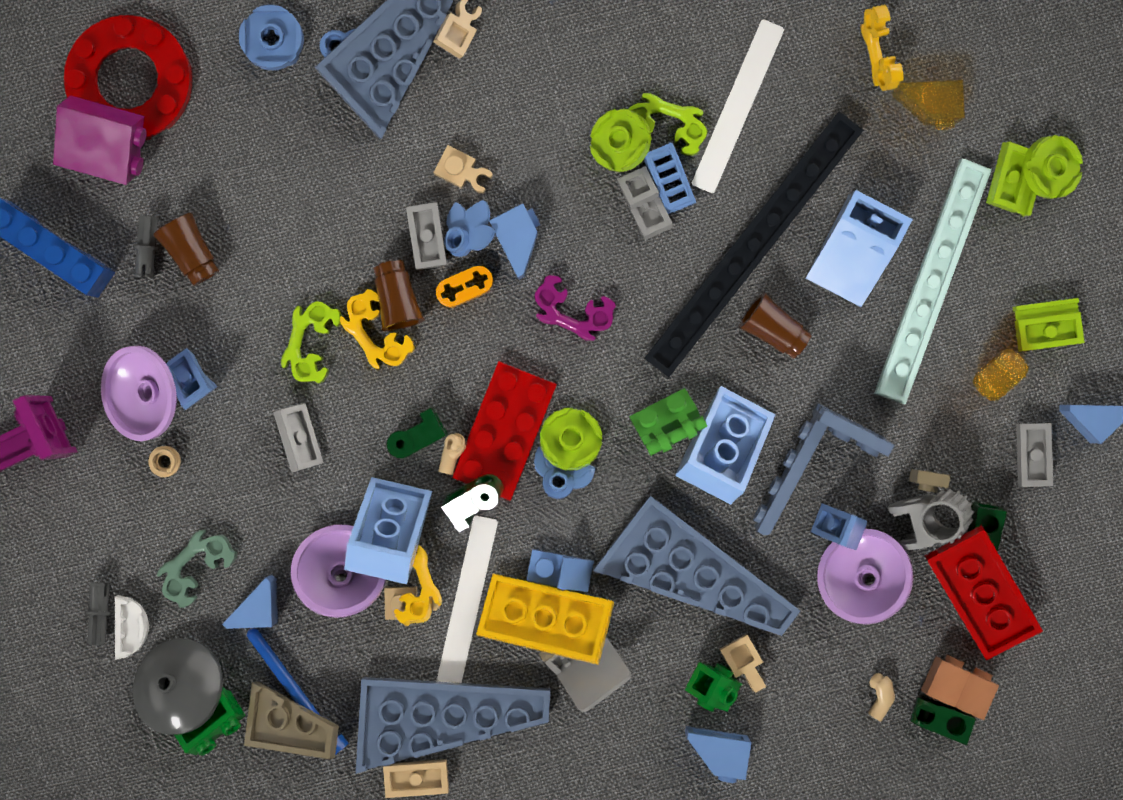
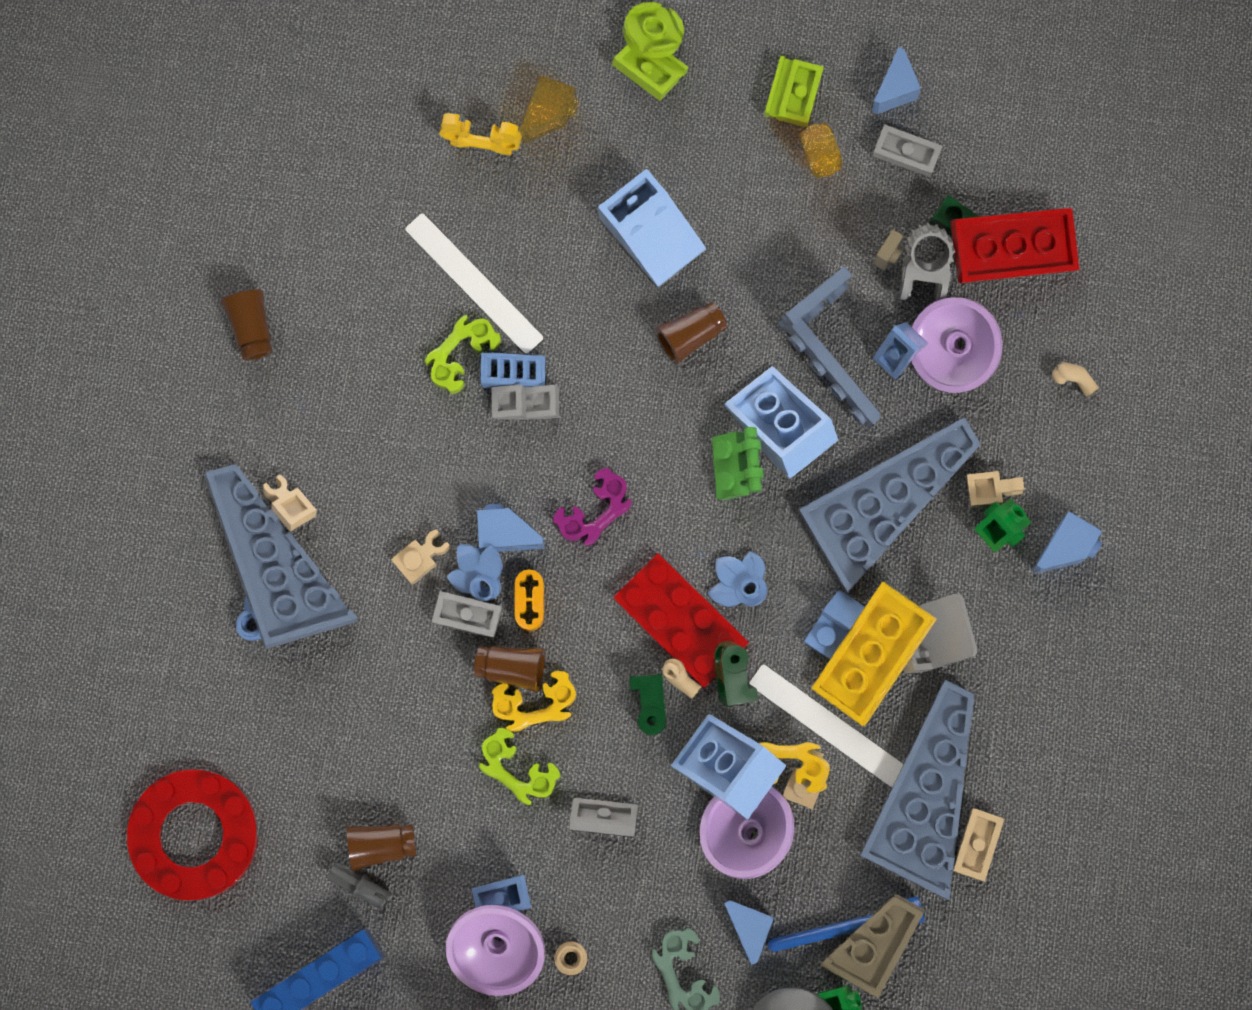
camera: 60 degrees left, 10 degrees down
(98, 140) = (240, 882): magenta brick -> none
(258, 25) = (200, 688): medium blue plate -> none
(570, 439) = (715, 561): lime tile -> none
(620, 140) = (458, 399): lime tile -> none
(753, 244) = (607, 322): black plate -> none
(932, 281) = (711, 177): light aqua tile -> none
(943, 720) = (1119, 330): dark green leg -> none
(960, 687) = (1094, 303): nougat brick -> none

